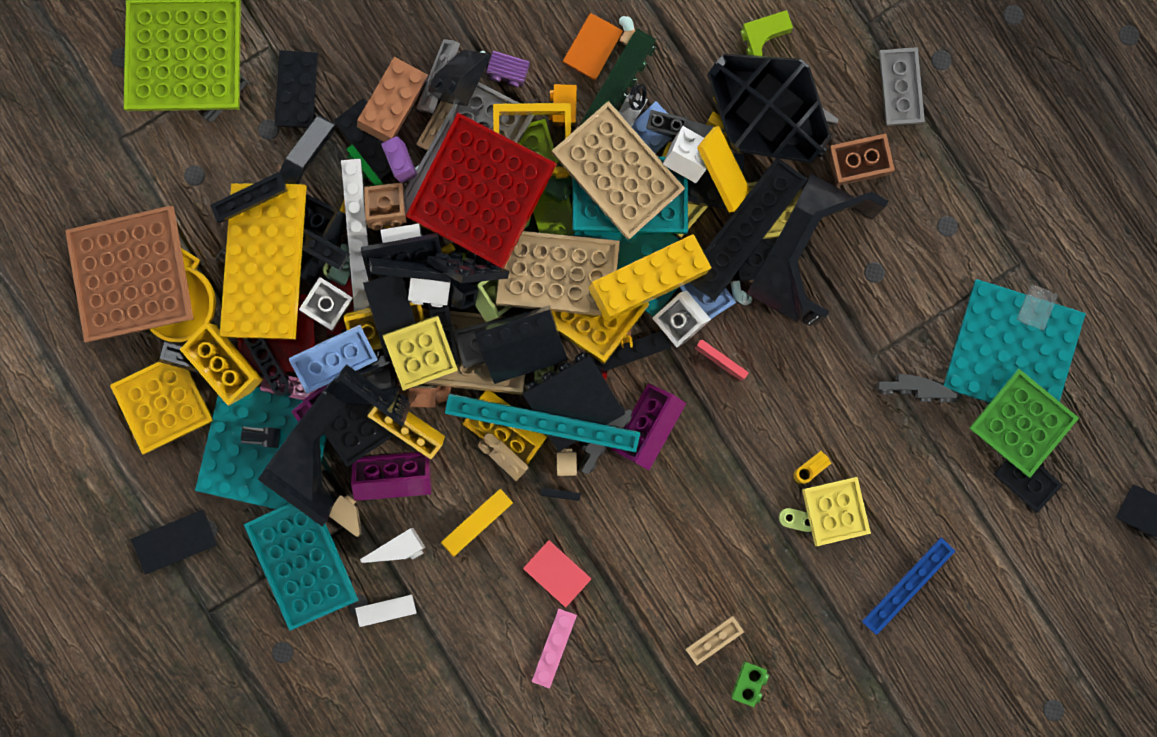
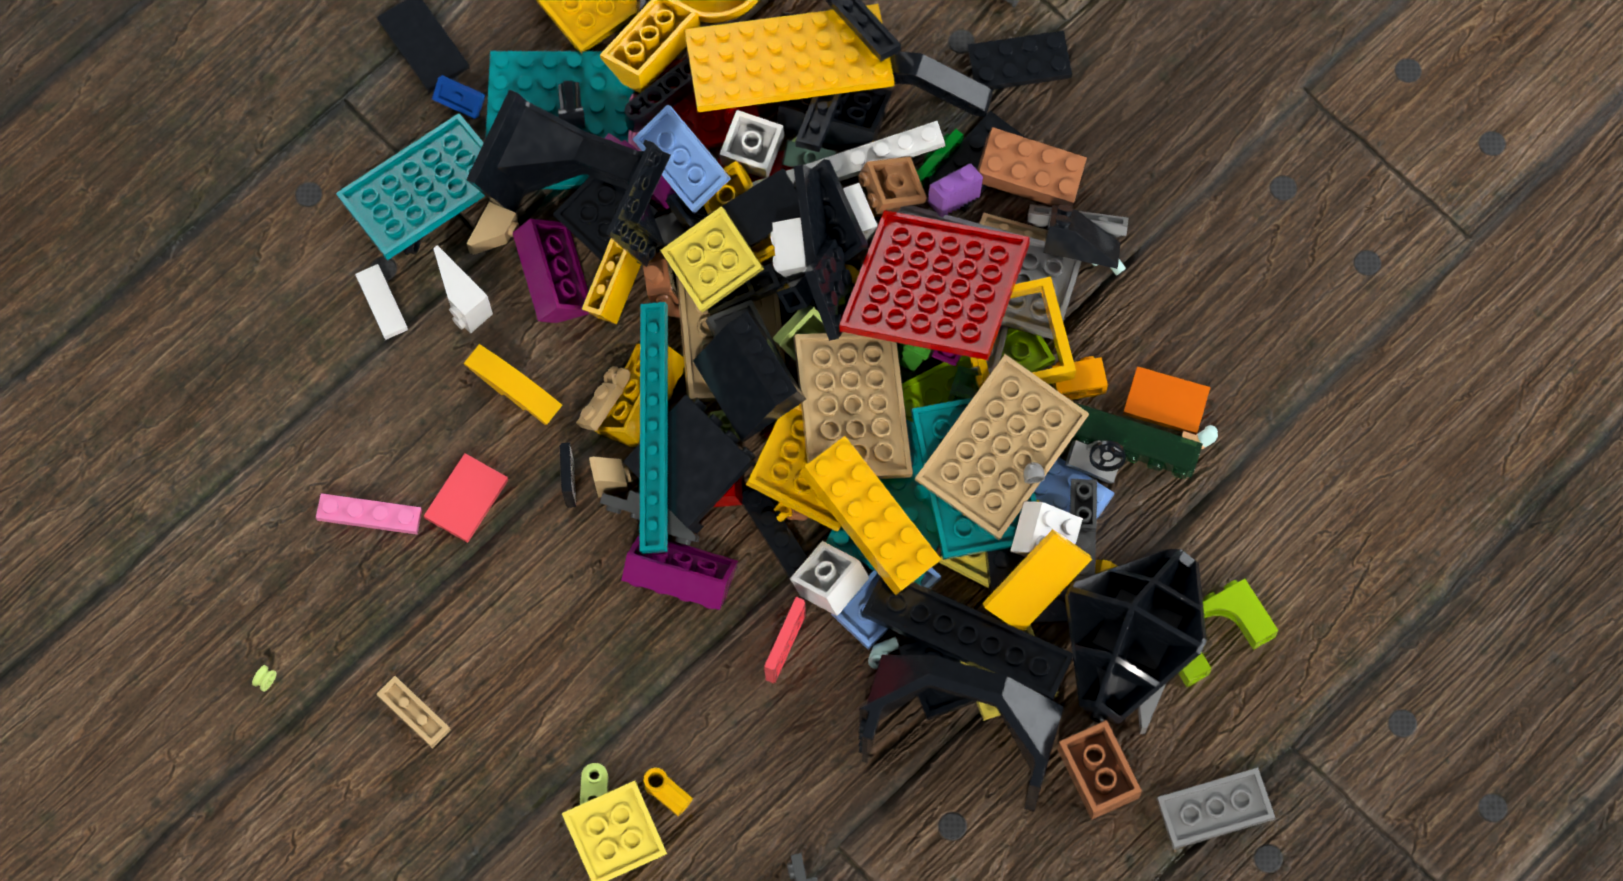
camera: 85 degrees right, 15 degrees down
(229, 522) = (458, 97): none -> blue plate
(507, 69) = (1109, 301): medium lavender brick -> none
(645, 151) = (1033, 473): none -> light grey hinge
(743, 682) = (365, 760): bright green brick -> none

